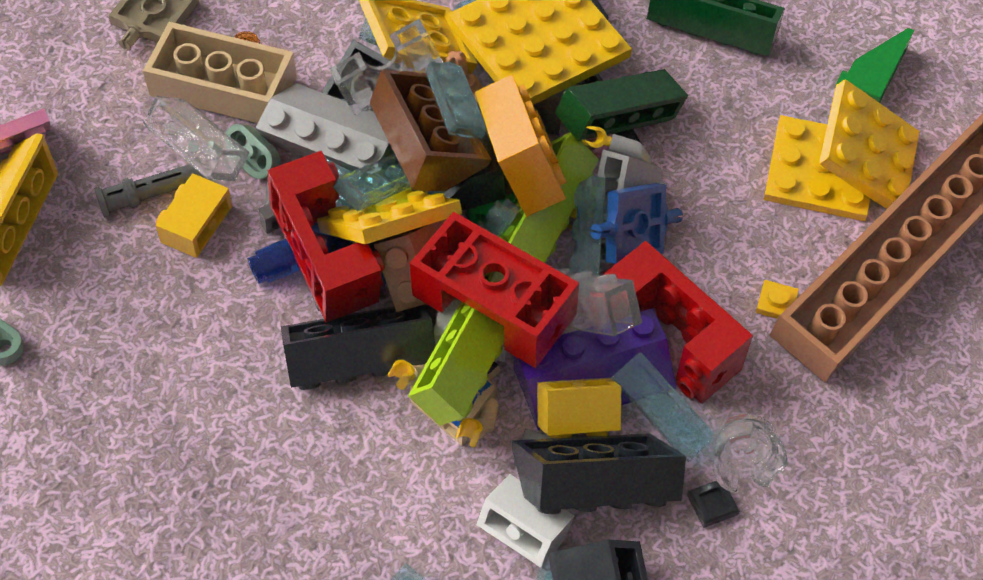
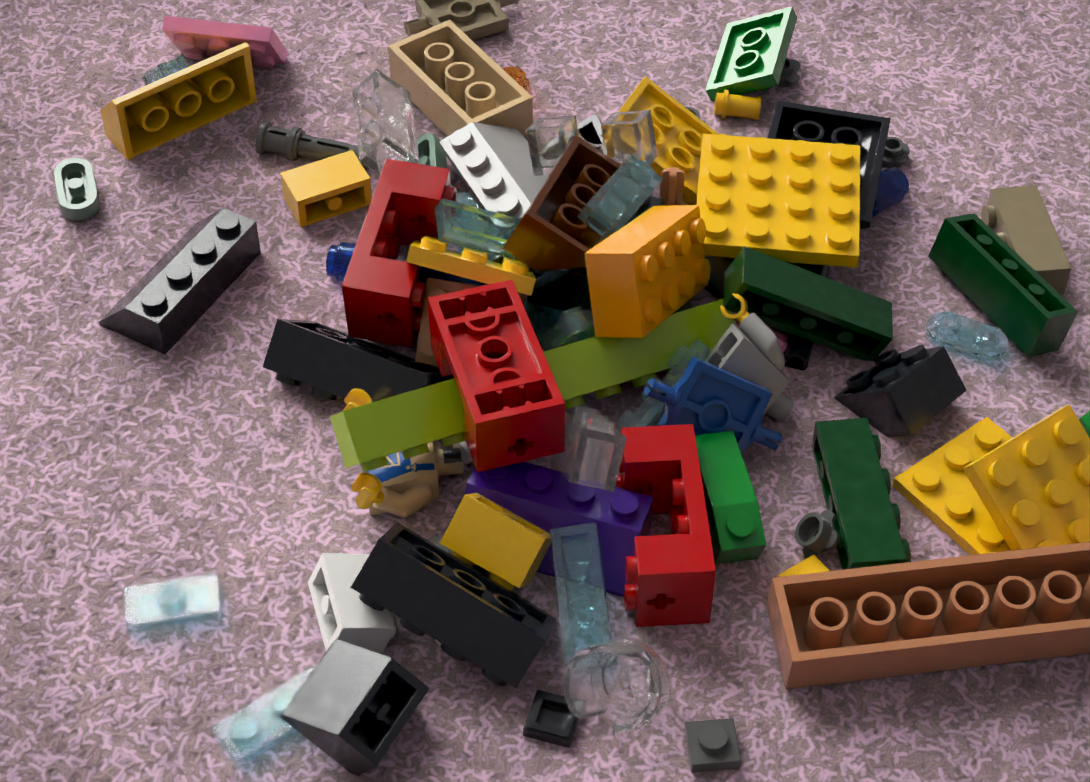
camera: 40 degrees right, 10 degrees down
(153, 358) = (186, 281): none -> black slope
(699, 269) = (729, 500): none -> green slope
(718, 65) = (966, 337): none -> clear light blue plate
(719, 128) = (903, 389): none -> black slope
(747, 260) = (817, 533): none -> dark grey plate
(761, 225) = (858, 494): none -> dark green brick
(819, 450) = (712, 745): none -> dark grey plate

